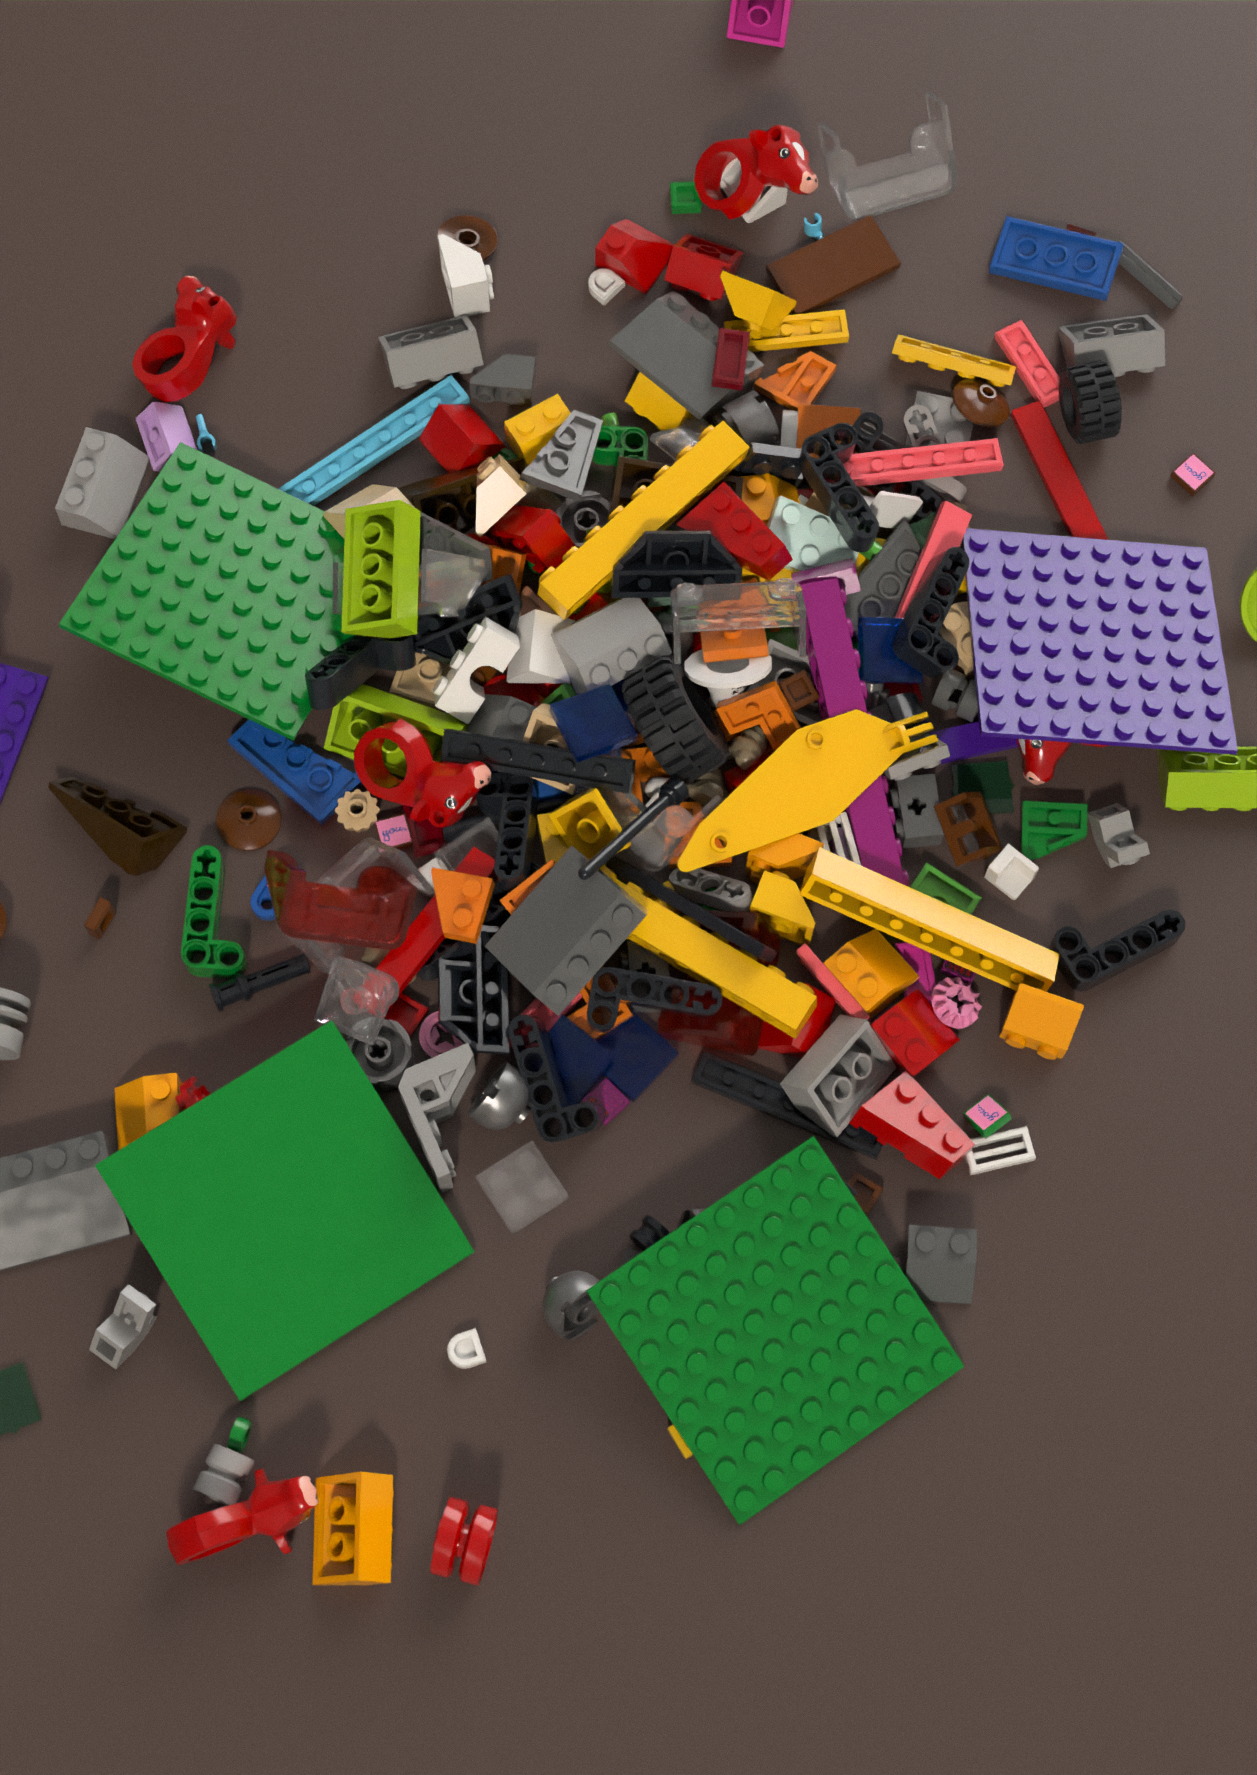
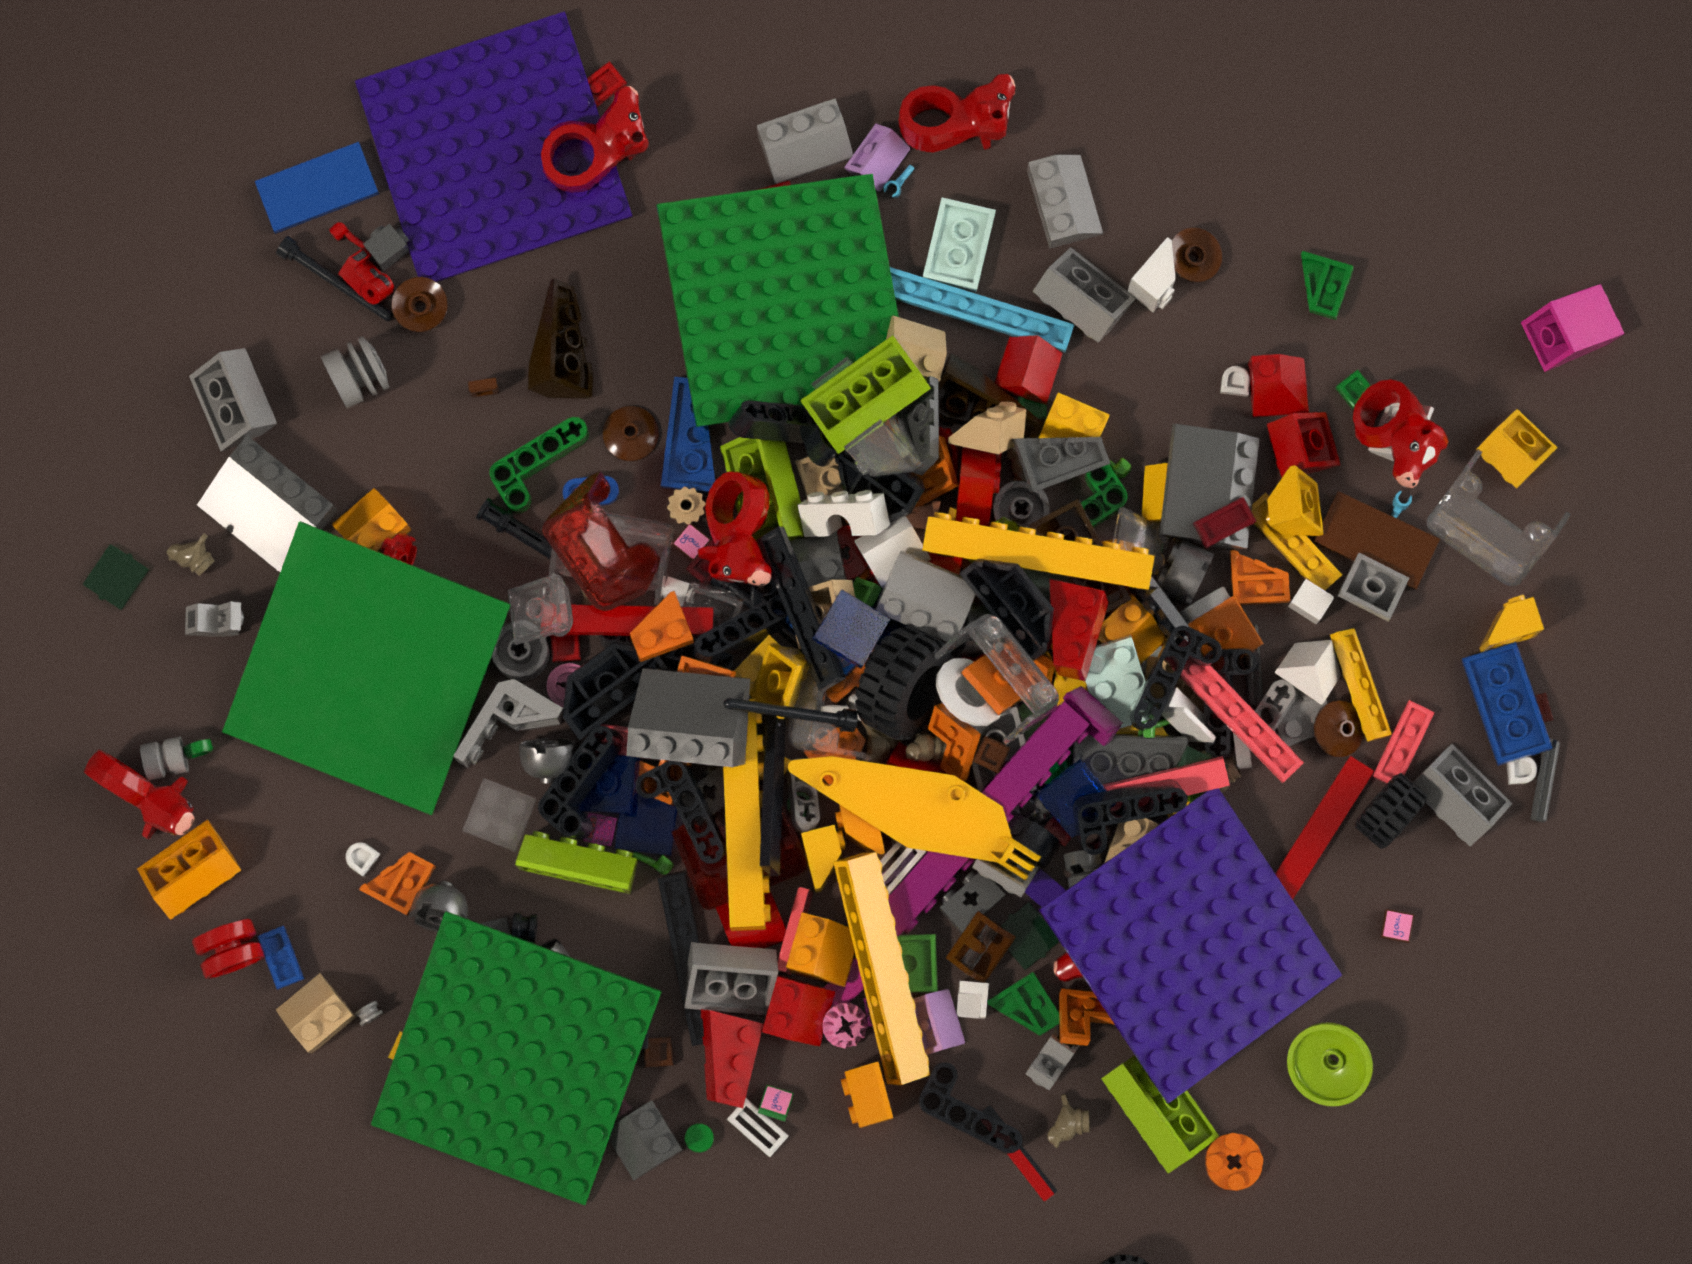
camera: 55 degrees right, 10 degrees up
(42, 1307) = (191, 555): none -> dark tan animal
(301, 420) = (959, 244): none -> light aqua plate
(330, 313) = (1064, 199): none -> light grey slope
(506, 380) = (1102, 368): dark grey slope -> none
(510, 1497) = (280, 957): none -> blue plate
(519, 1327) = (400, 883): none -> orange wing
(574, 158) = (1325, 283): none -> green wing
(589, 1501) = (315, 1014): none -> tan slope
(625, 1142) = (577, 863): none -> lime slope
(627, 1448) = (368, 1013): none -> light grey bush
(682, 1069) = (662, 865): none -> bright green hand
(837, 105) = (1516, 448): none -> yellow slope
(849, 350) = (1311, 601): none -> white panel
(874, 292) = (1373, 586): none -> light grey slope
(910, 385) = (1311, 668): none -> white slope
(971, 1212) = (699, 1138): none -> green tile
(990, 201) = (1514, 623): none -> yellow slope
(1012, 915) = (938, 1021): none -> lavender panel
(1090, 782) = (1075, 1014): none -> orange plate
(1123, 288) = (1521, 771): none -> white tile
(1187, 864) = (1068, 1123): none -> dark tan animal
(1202, 932) = (1023, 1160): none -> red sticker

